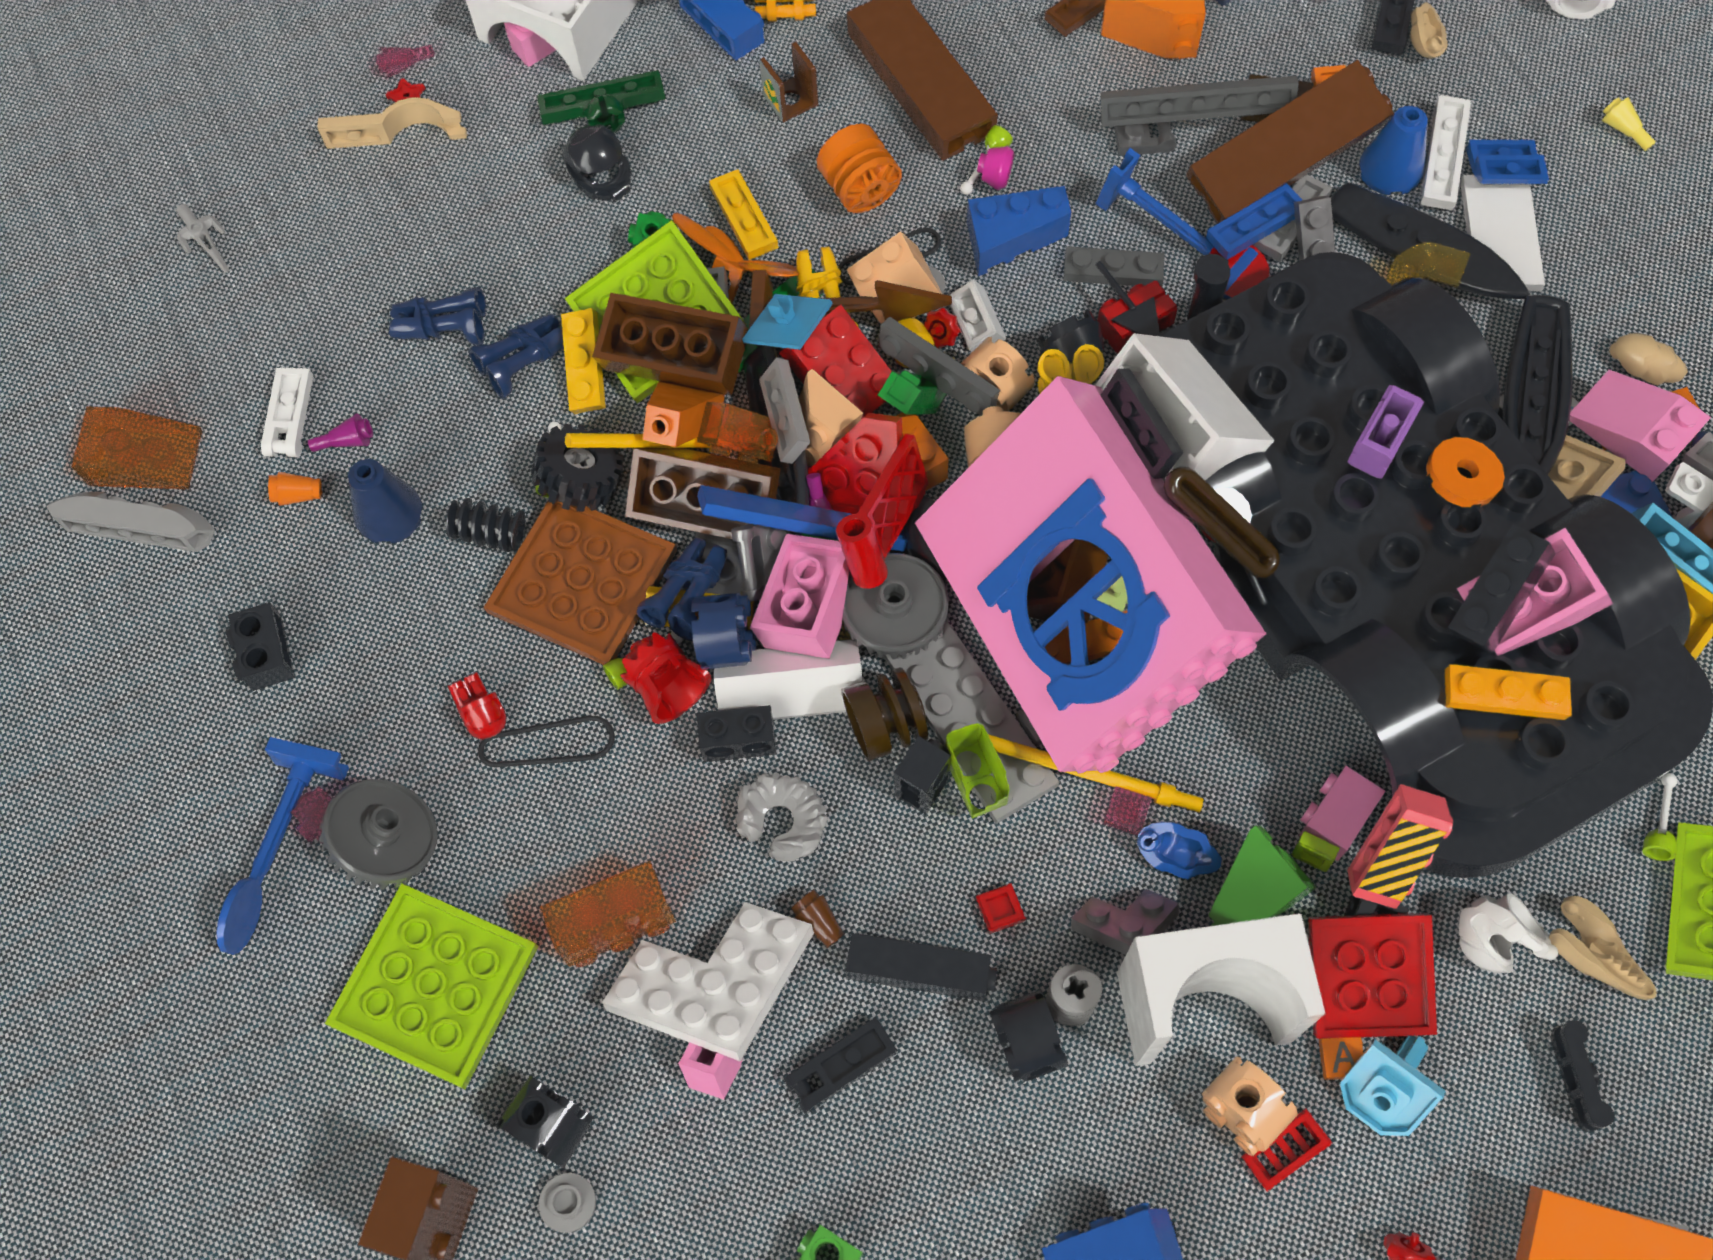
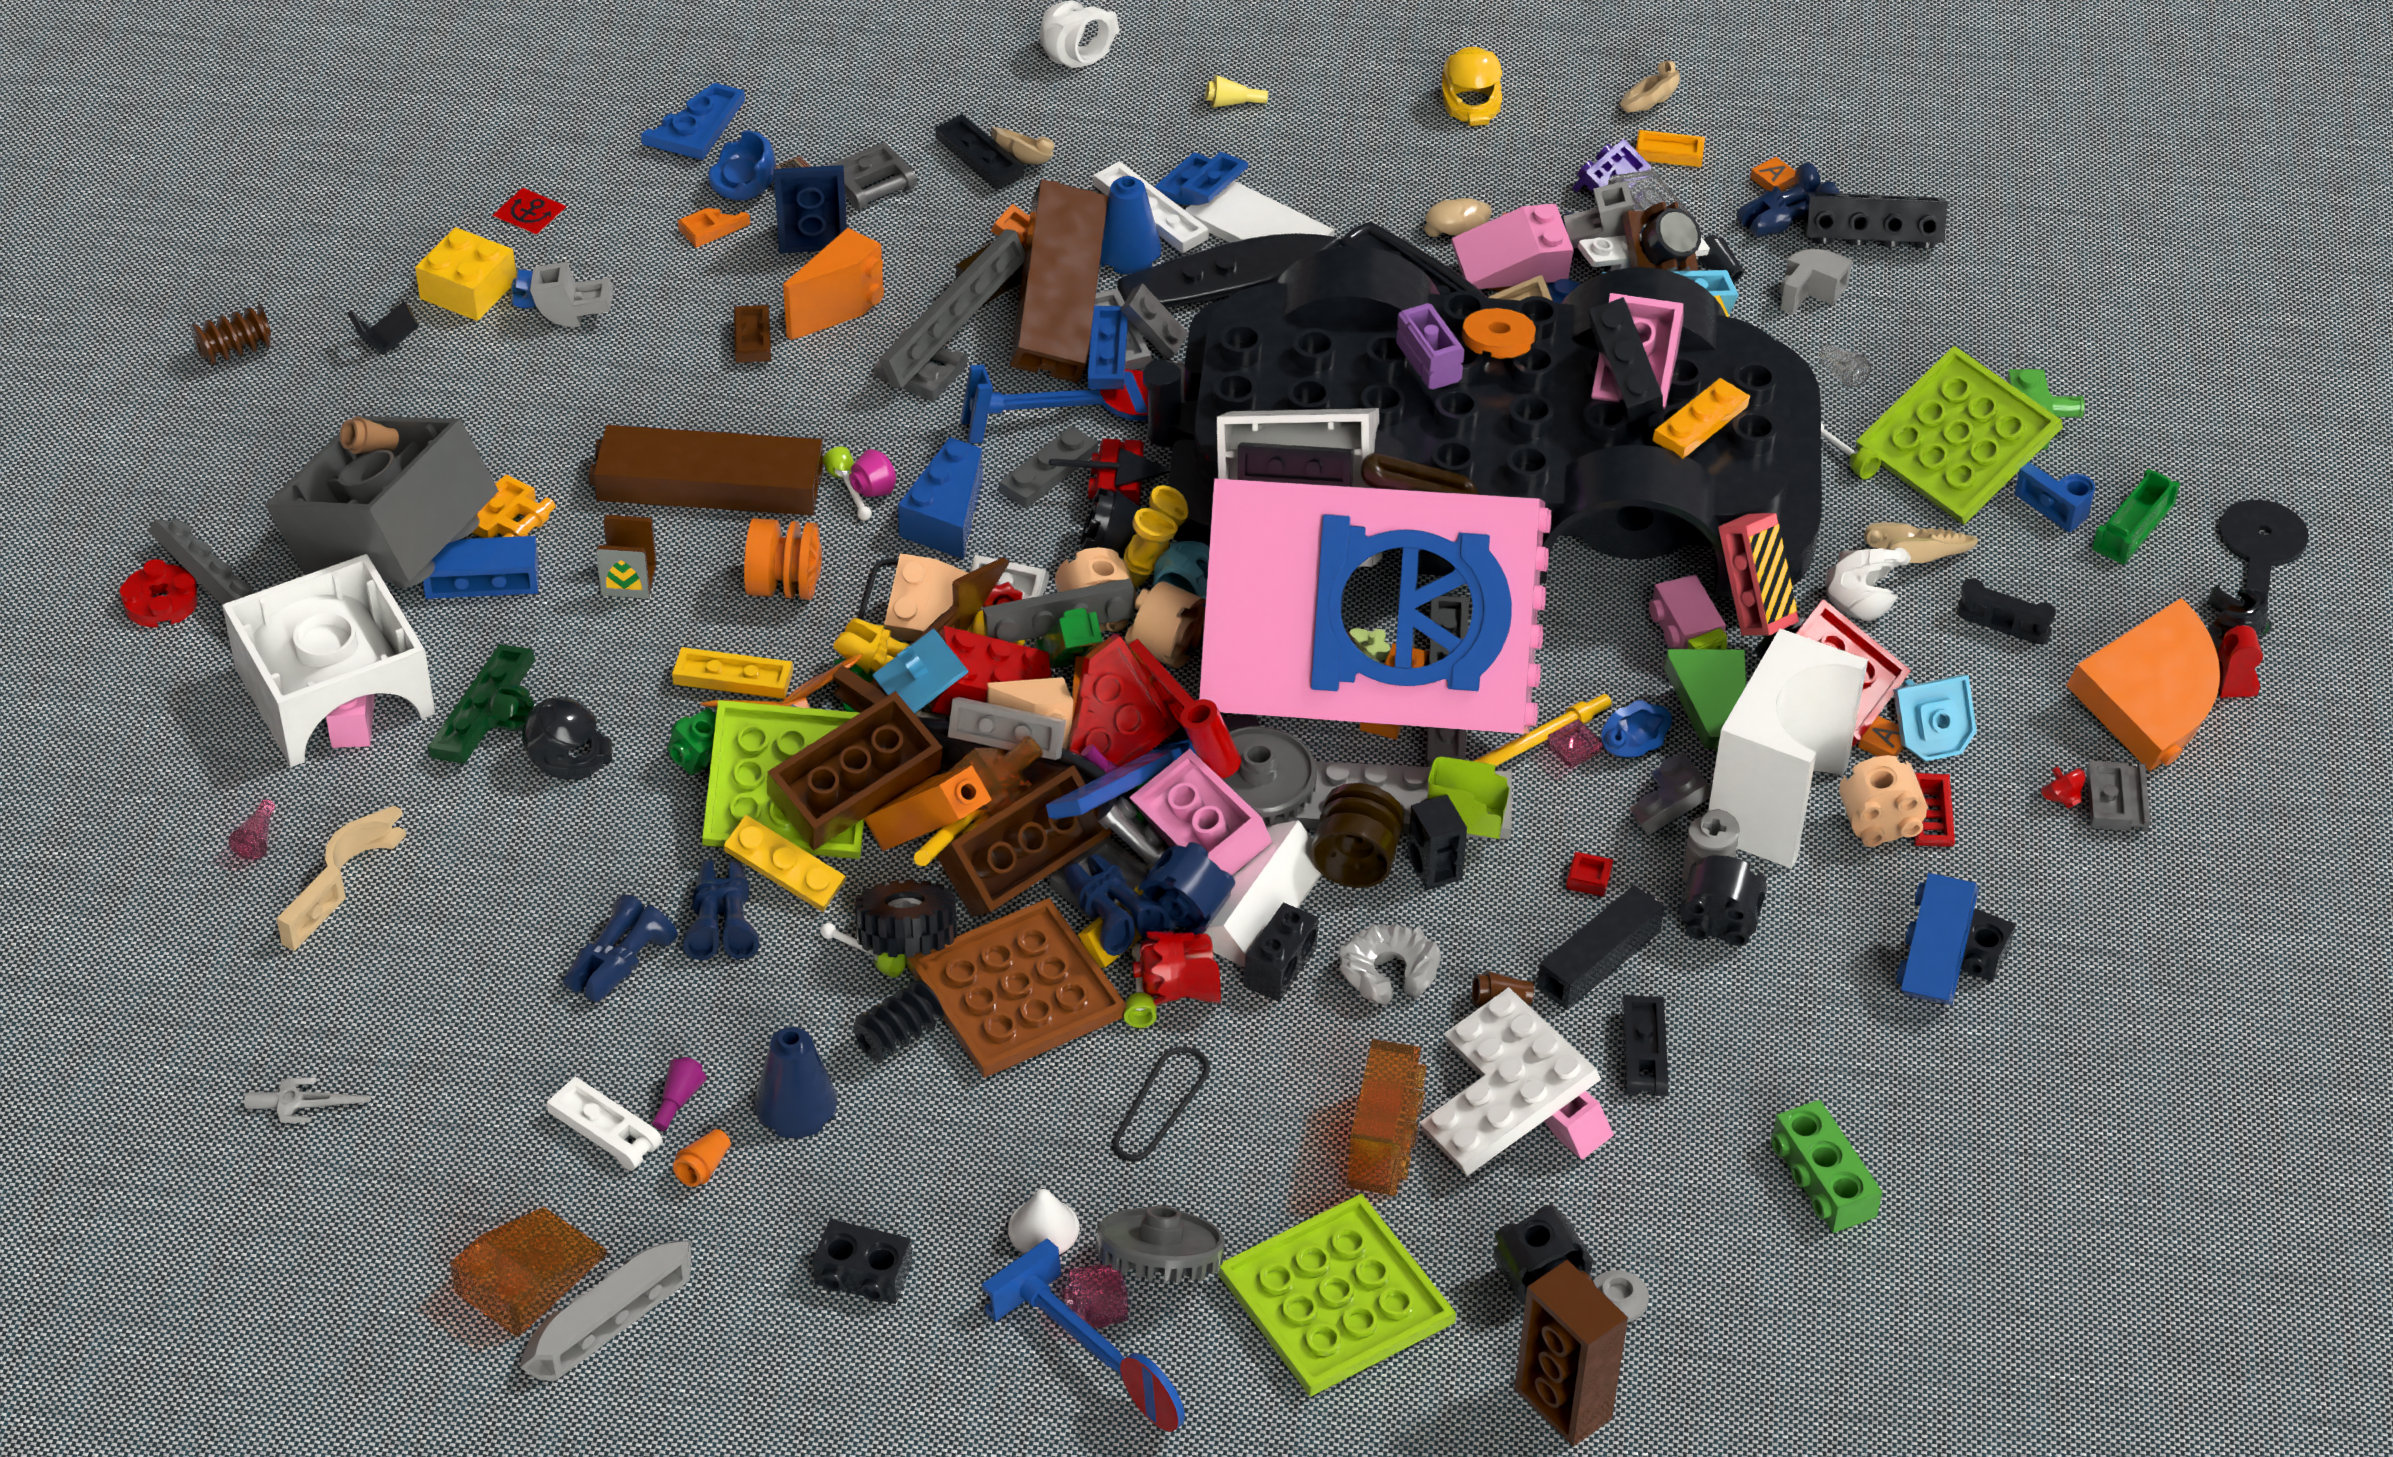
camera: 60 degrees left, 20 degrees down
(376, 741) = (1041, 1219): none -> white hat
(405, 88) = (305, 860): red plate -> none
(478, 709) = (1092, 1121): red piece -> none
(1430, 262) = (1258, 268): clear yellow plate -> none

